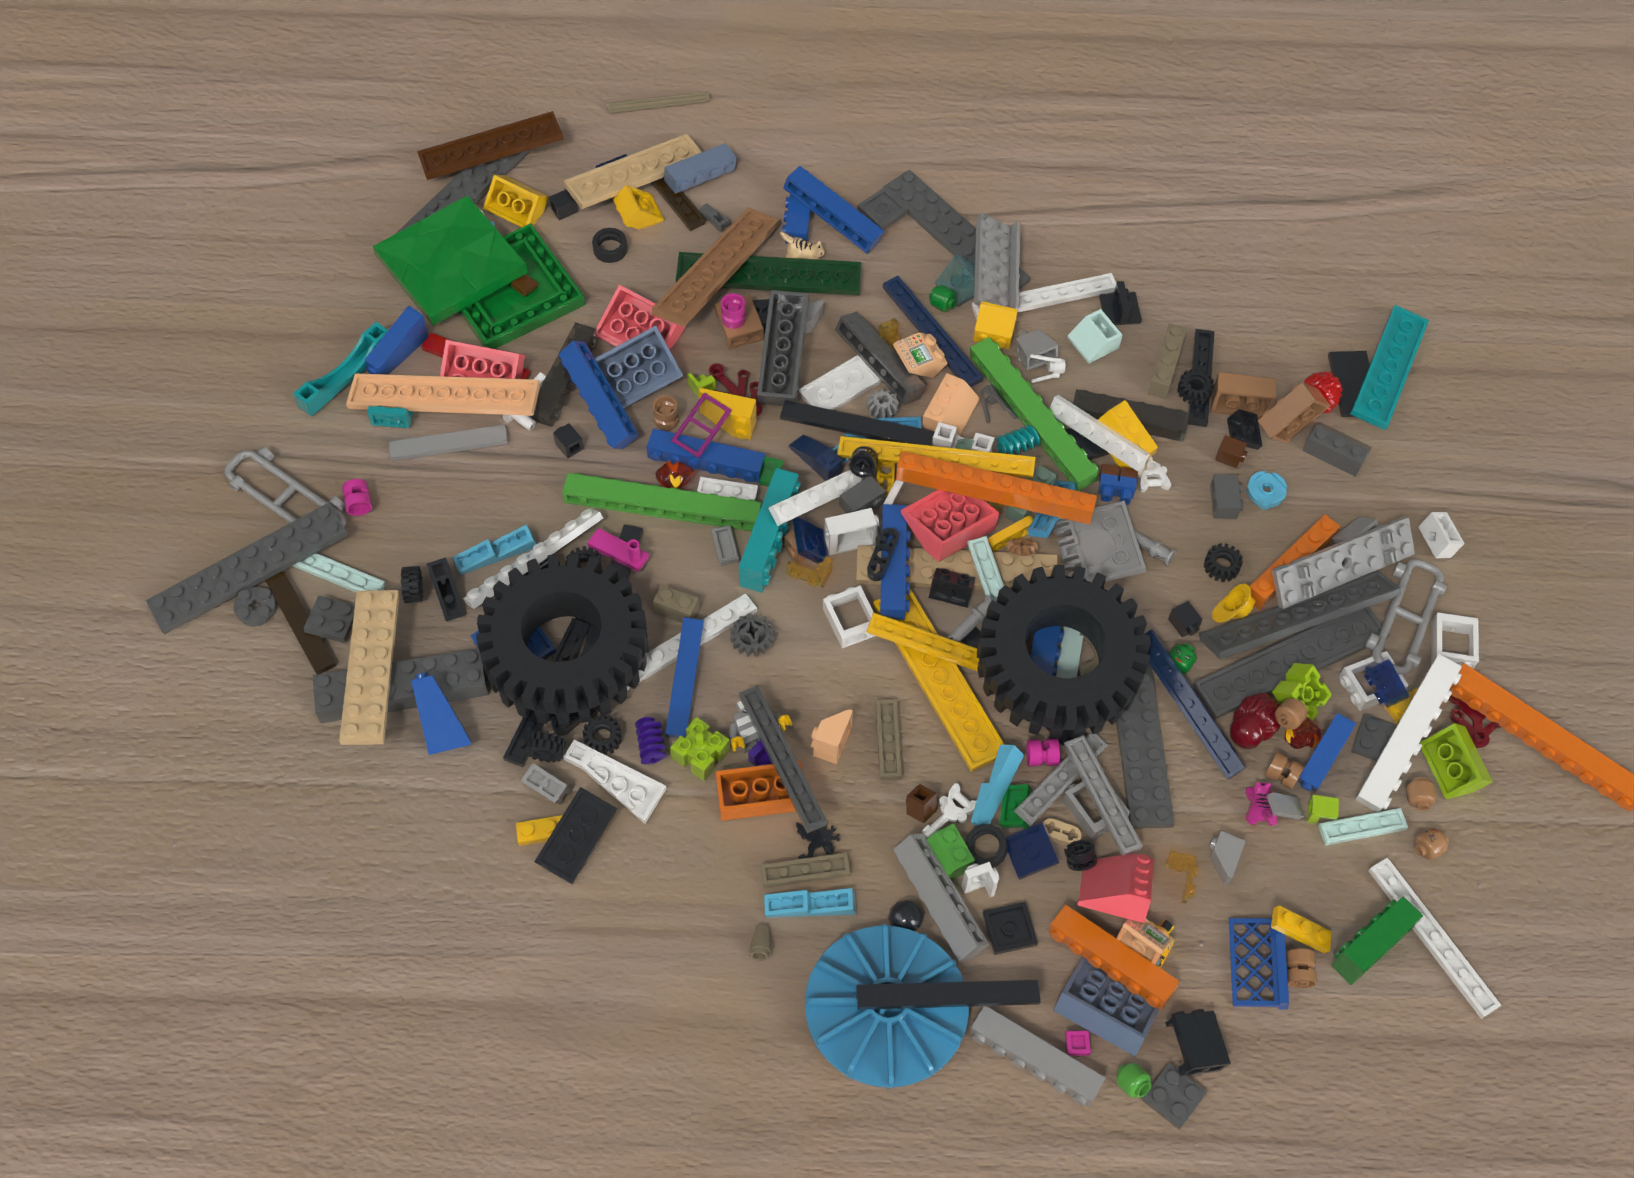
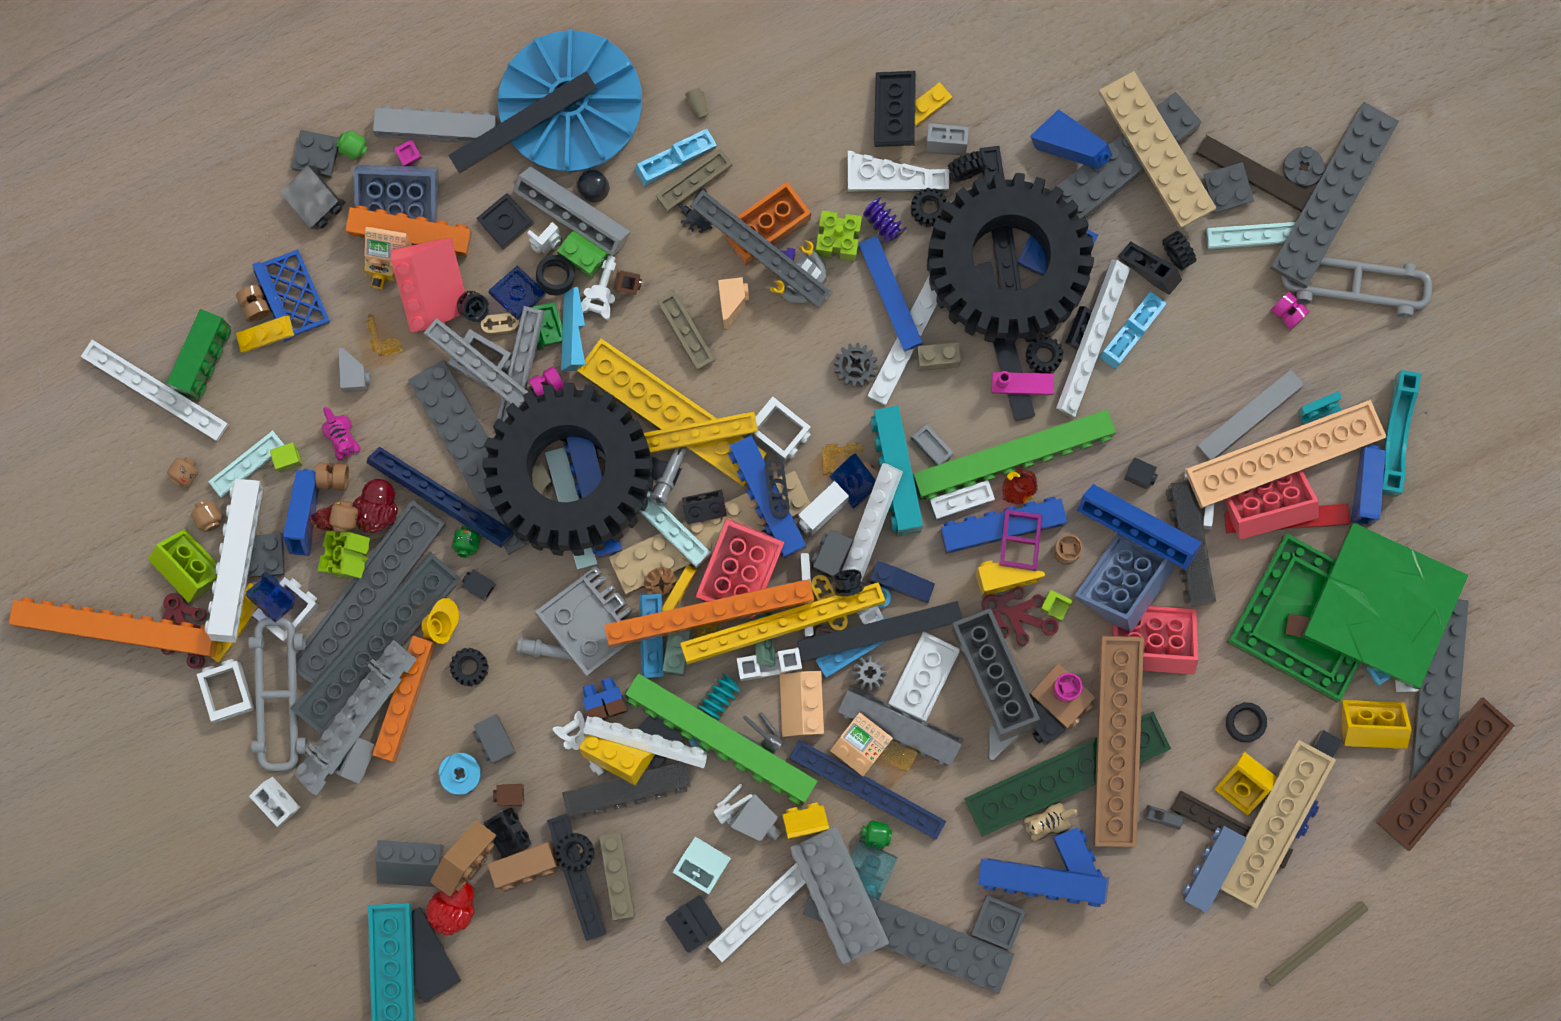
camera: 155 degrees right, 20 degrees up
(769, 467) = (931, 539): green panel -> none
(1285, 806) = (319, 440): light grey tile -> none

